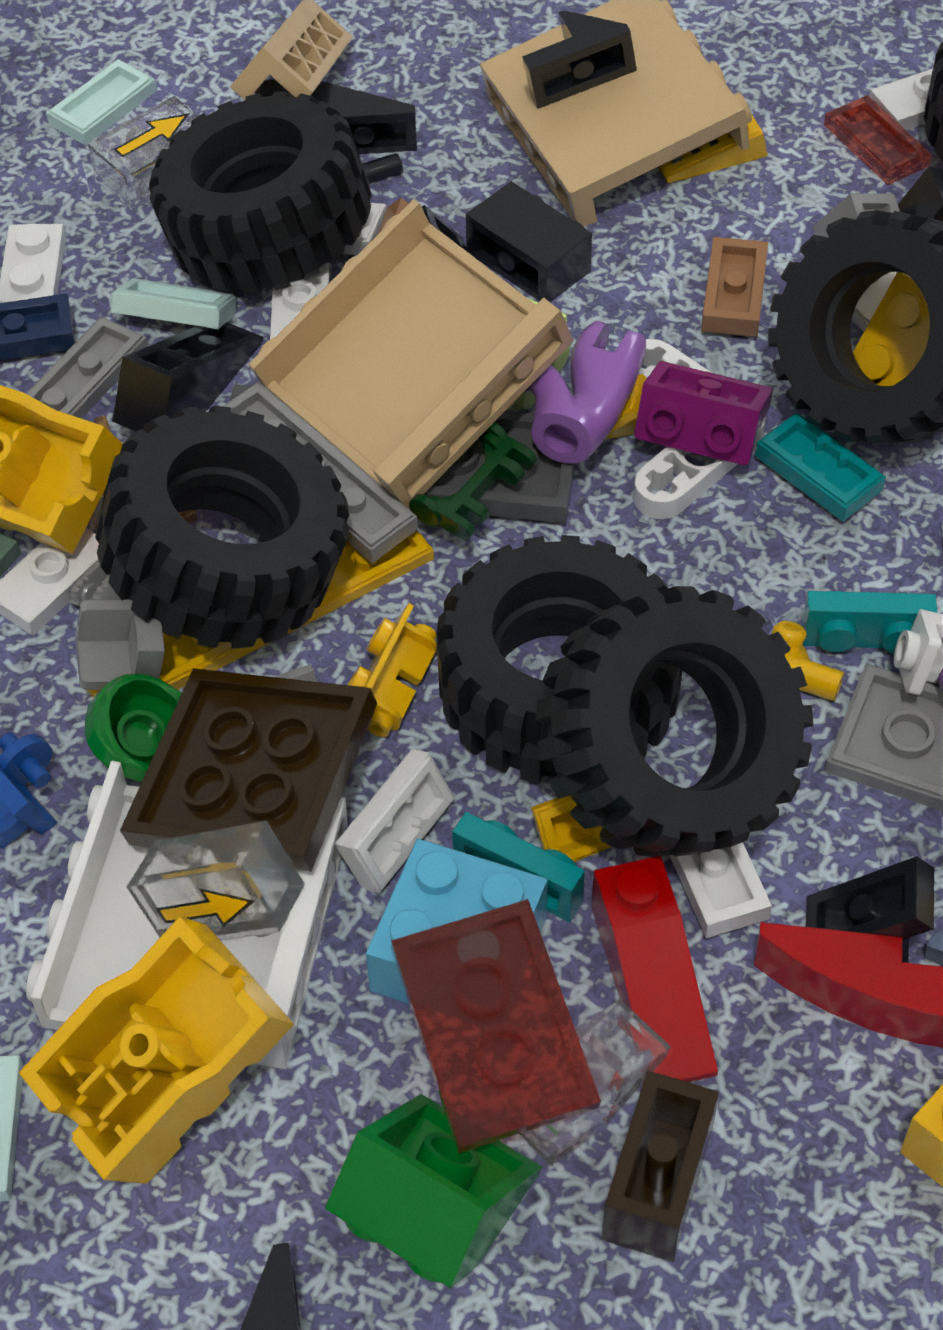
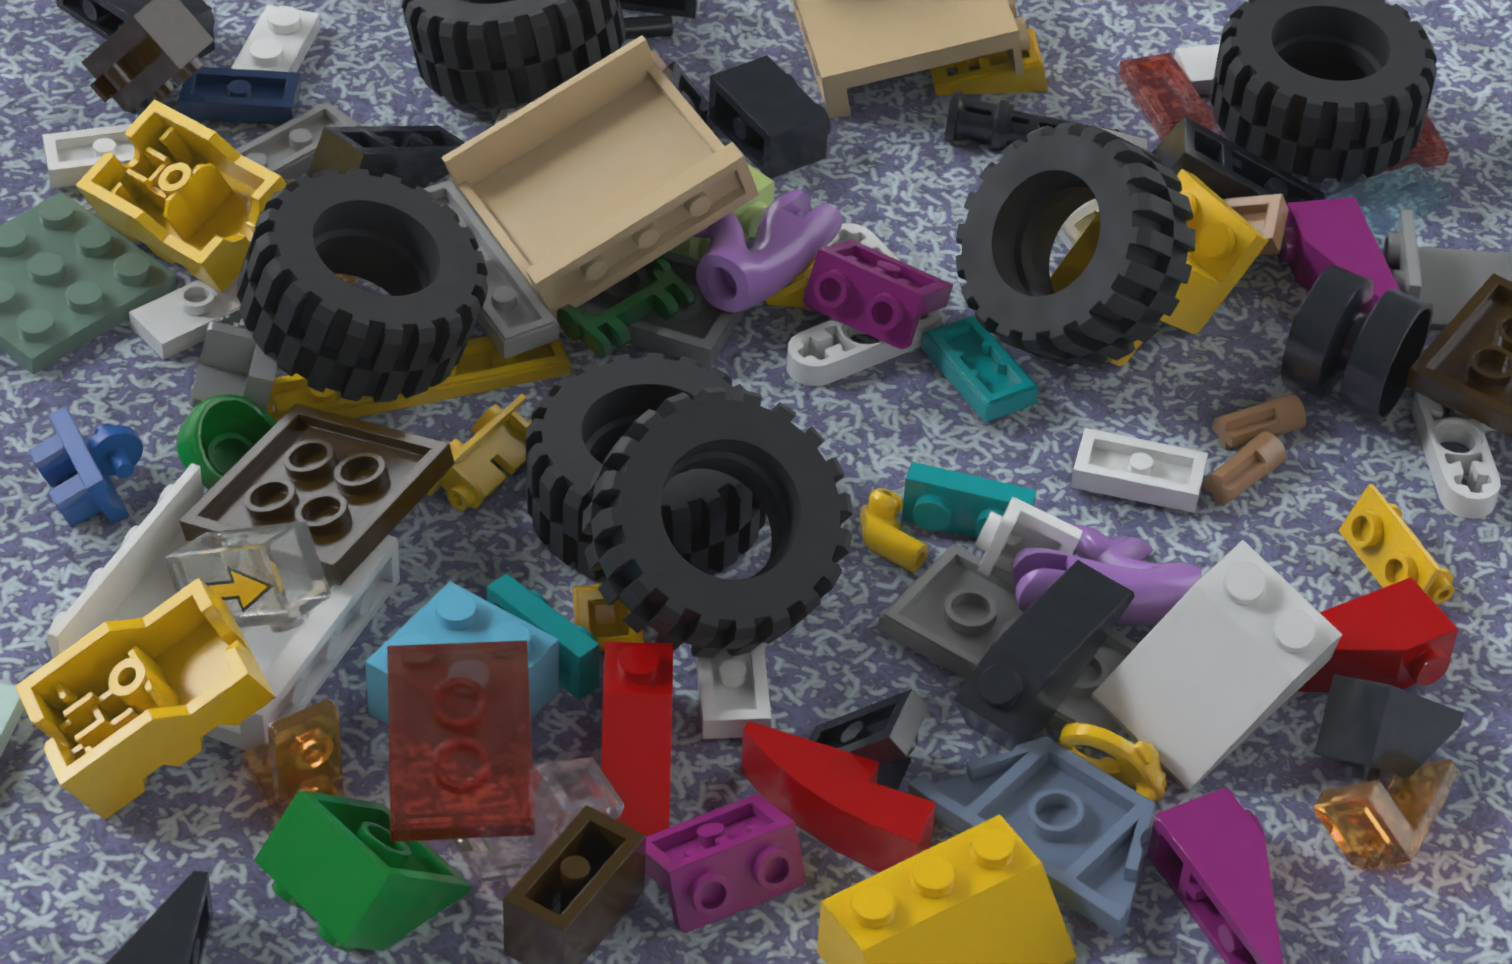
camera: 10 degrees right, 10 degrees down
(173, 303) = (400, 102): light aqua tile -> none
(327, 1082) = (299, 756): none -> clear orange bracket
(394, 819) = (464, 555): white plate -> none
(734, 287) = (945, 200): medium nougat plate -> none
(745, 202) = (993, 122): none -> black pin
(781, 1075) = (725, 861): none -> magenta bracket

